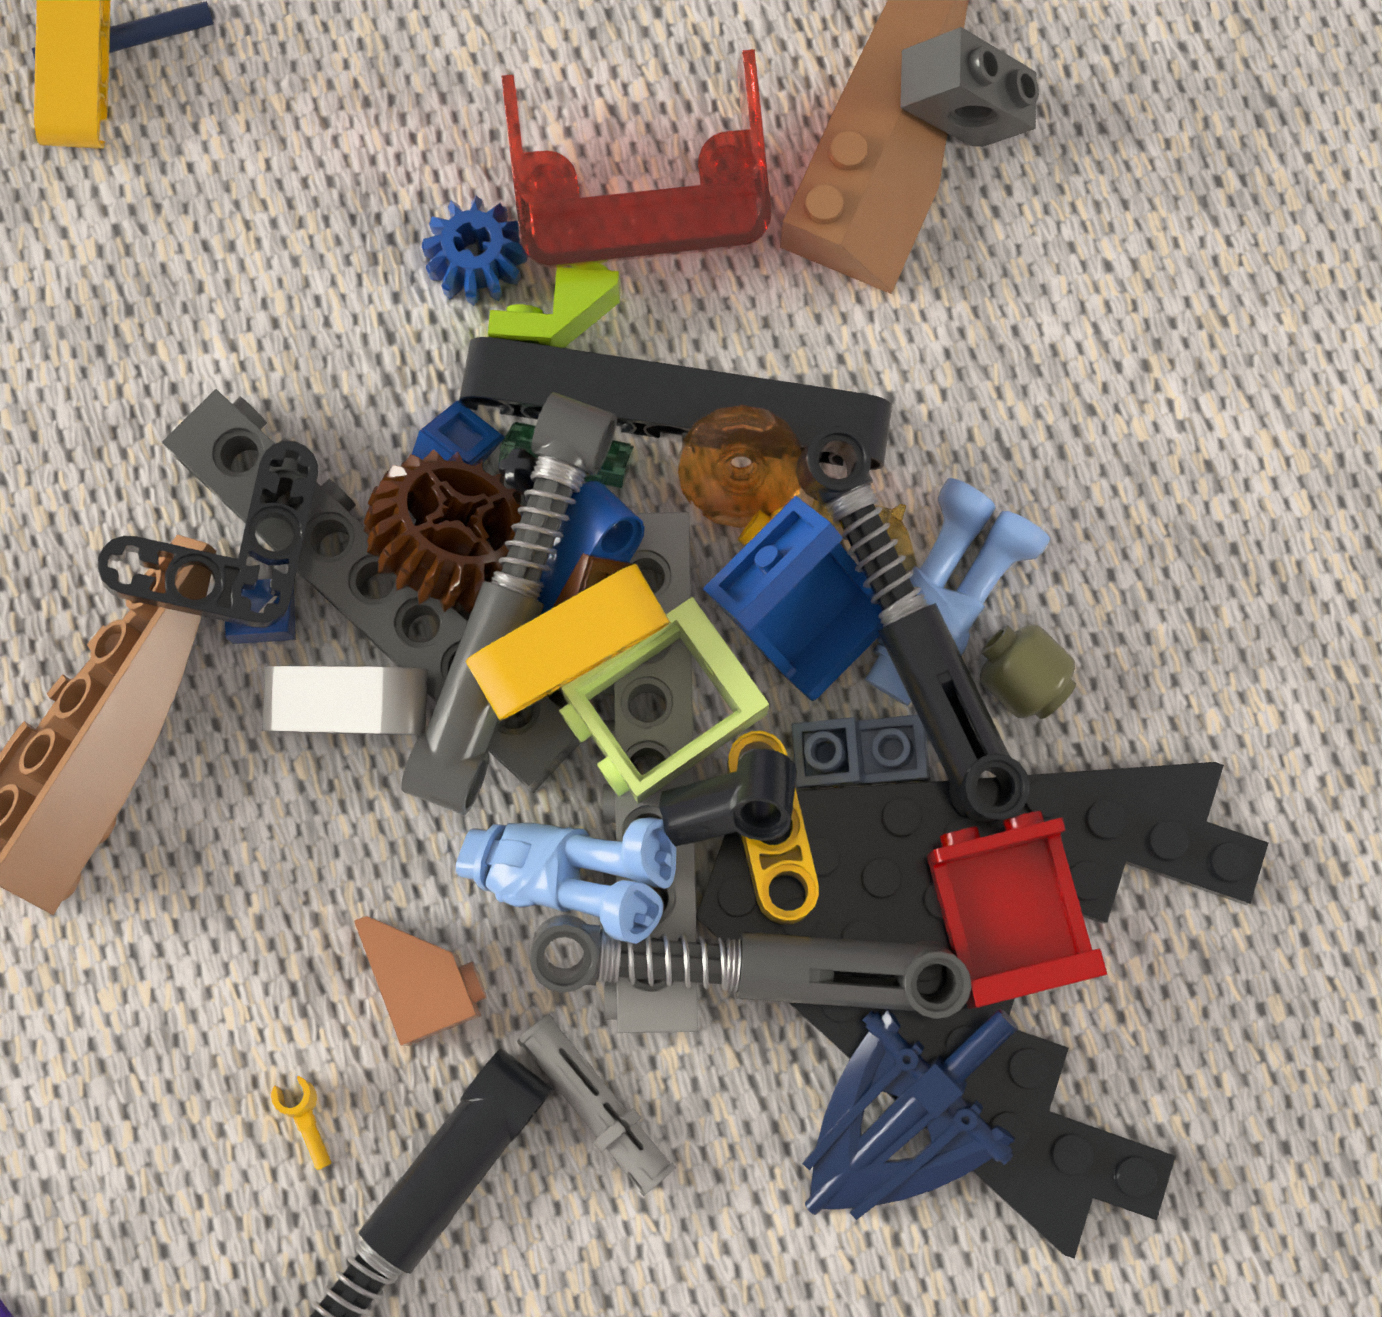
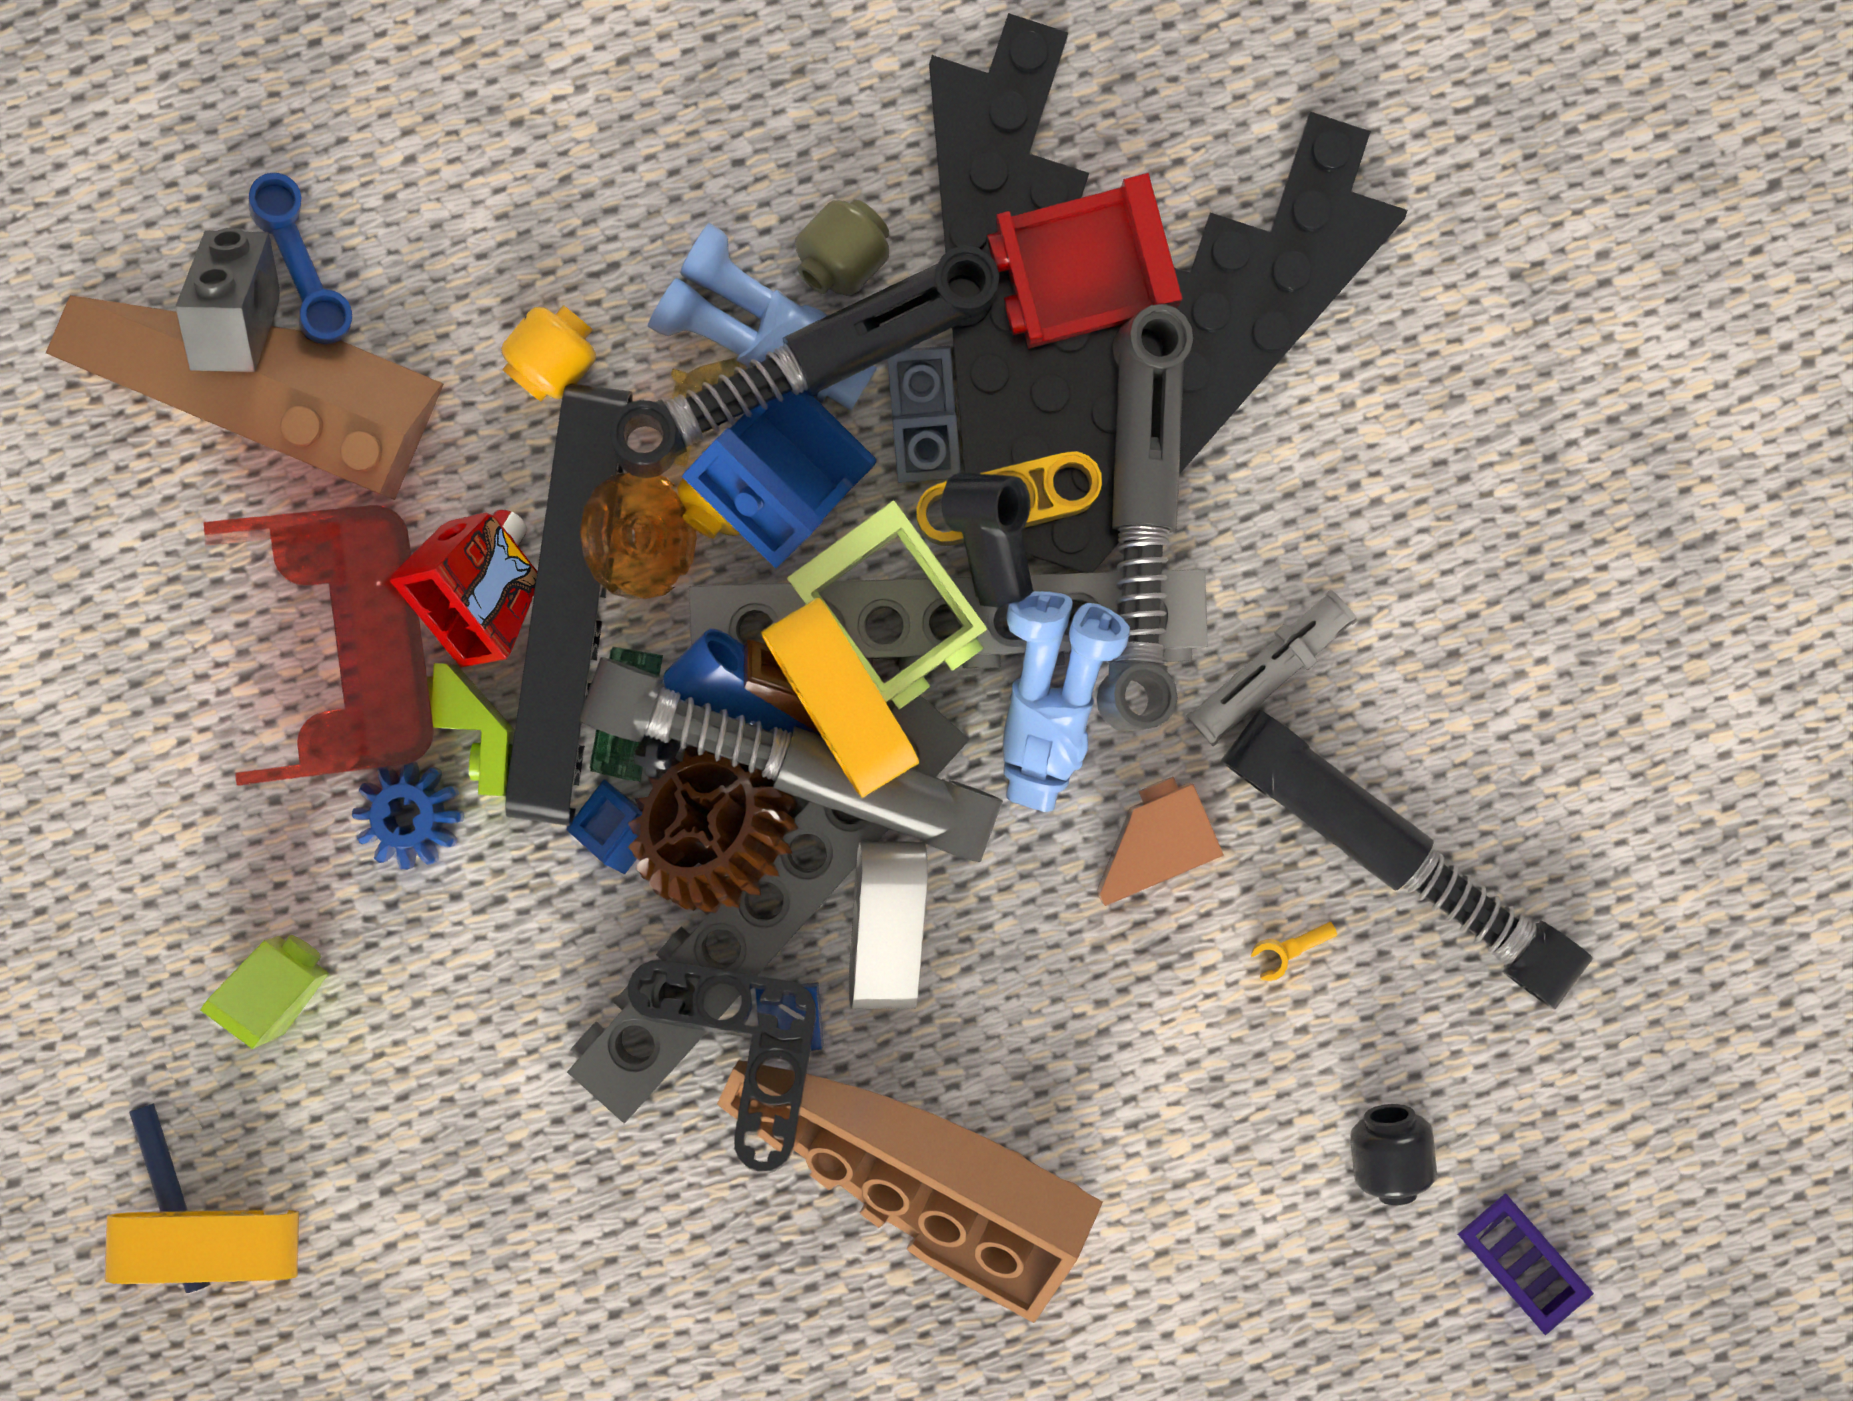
camera: 90 degrees left, 10 degrees up
(82, 1224) = (1393, 1154): none -> black head
(308, 114) = (267, 990): none -> lime slope
(694, 306) = (471, 585): none -> red torso
(855, 1166) = (1327, 415): dark blue bar -> none
(922, 387) = (548, 352): none -> yellow head
(1056, 142) = (276, 212): none -> blue bar

